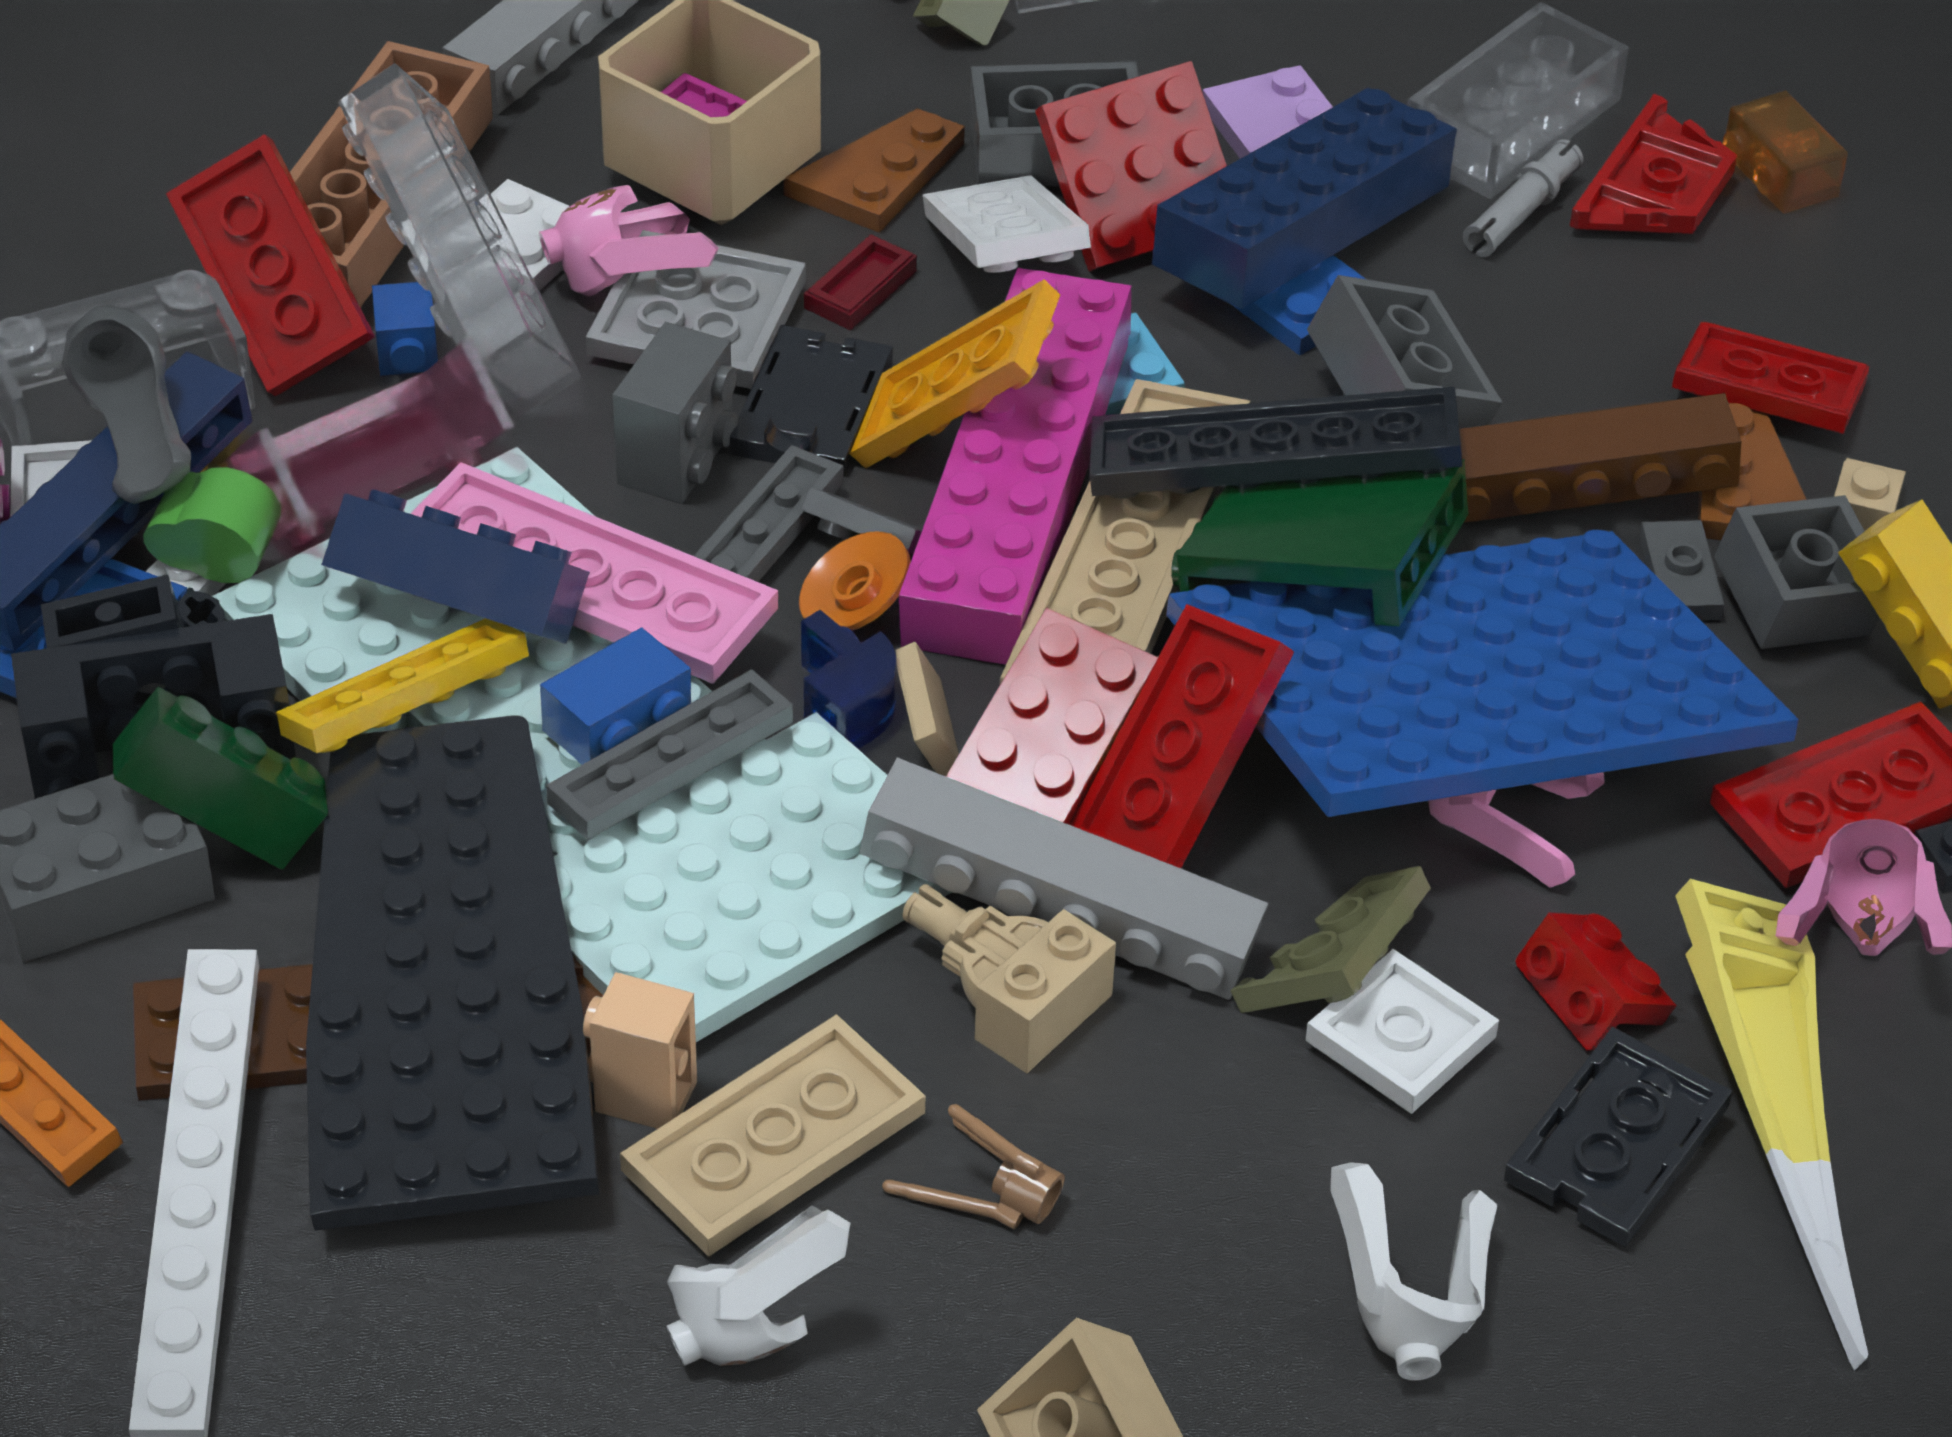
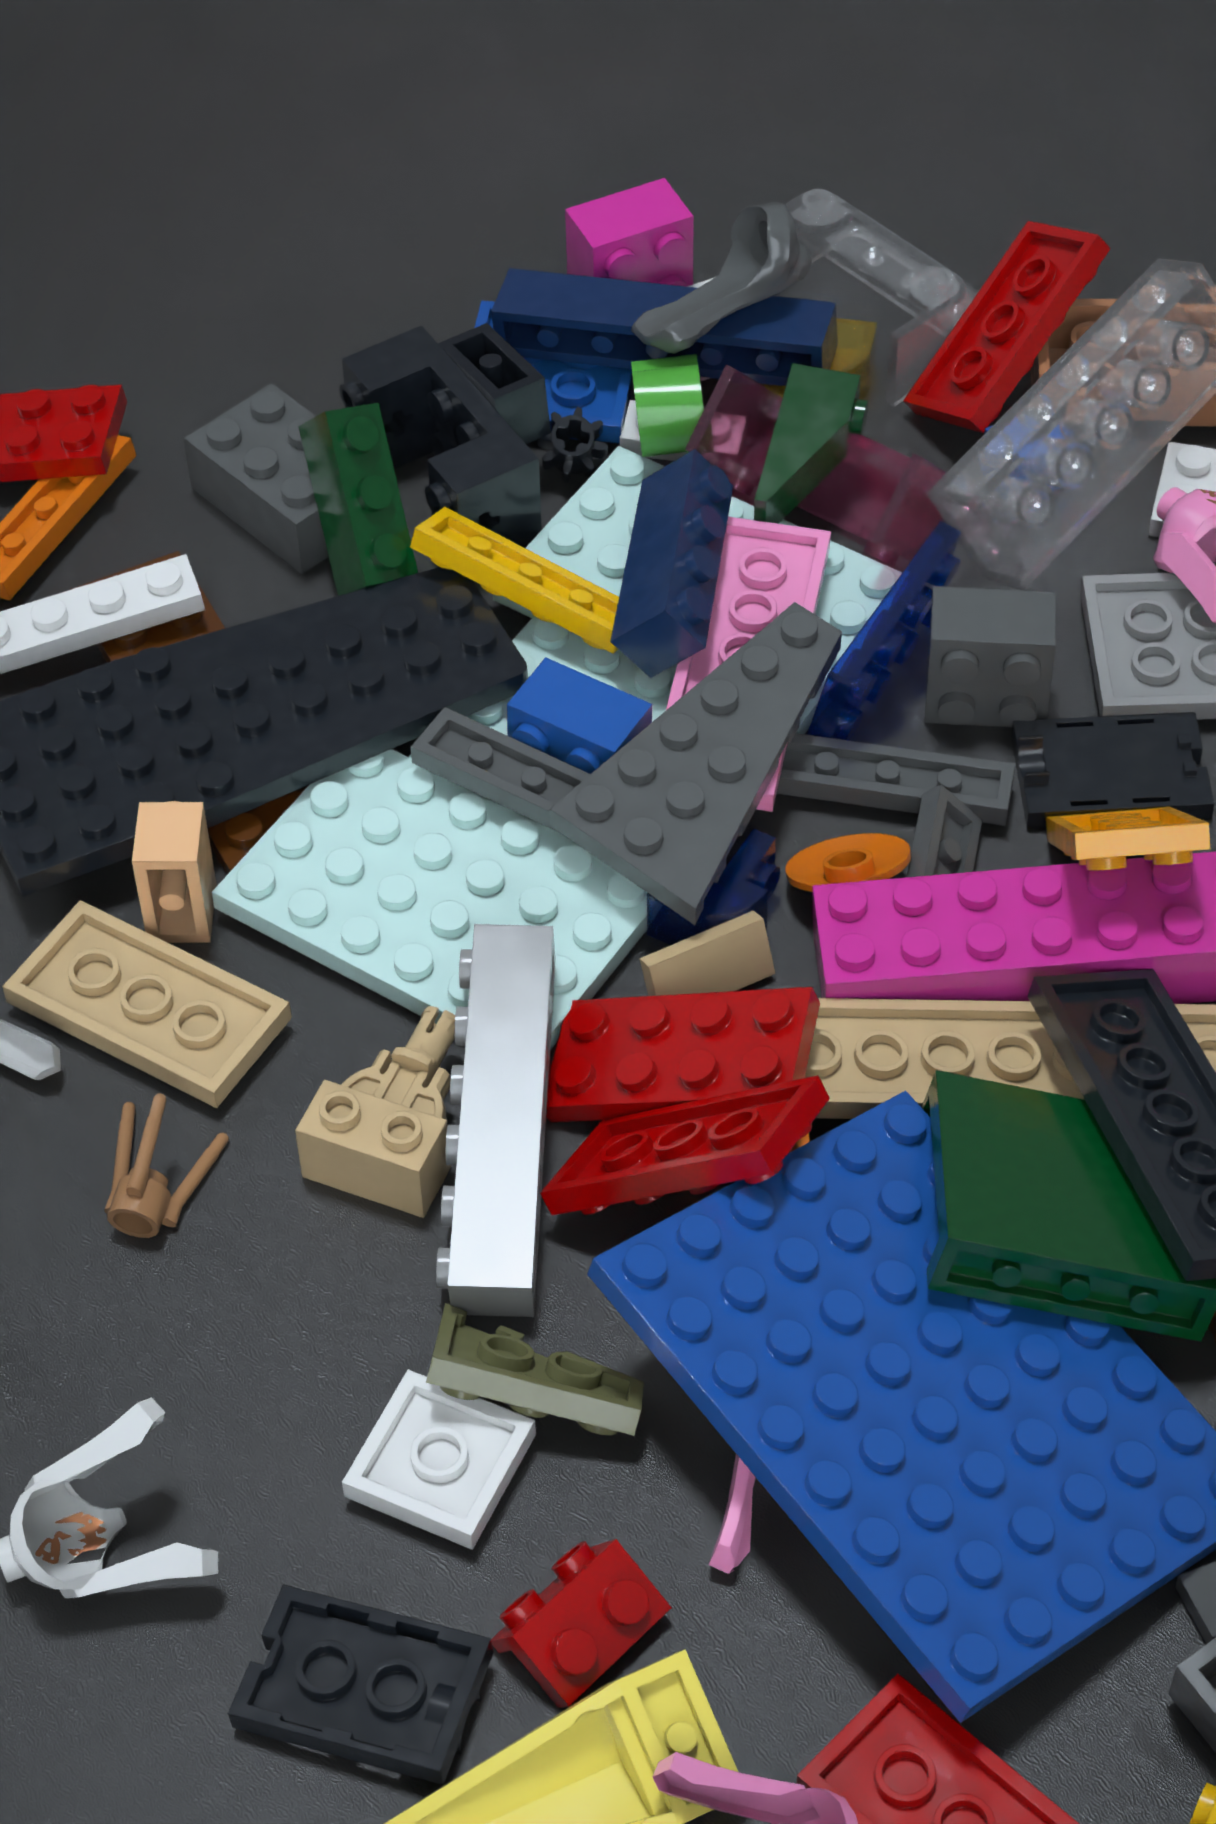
camera: 75 degrees right, 5 degrees up
(334, 436) = (809, 437): none -> dark green slope
(610, 461) = (885, 638): none -> clear blue plate
(751, 642) = (696, 774): none -> dark grey wing

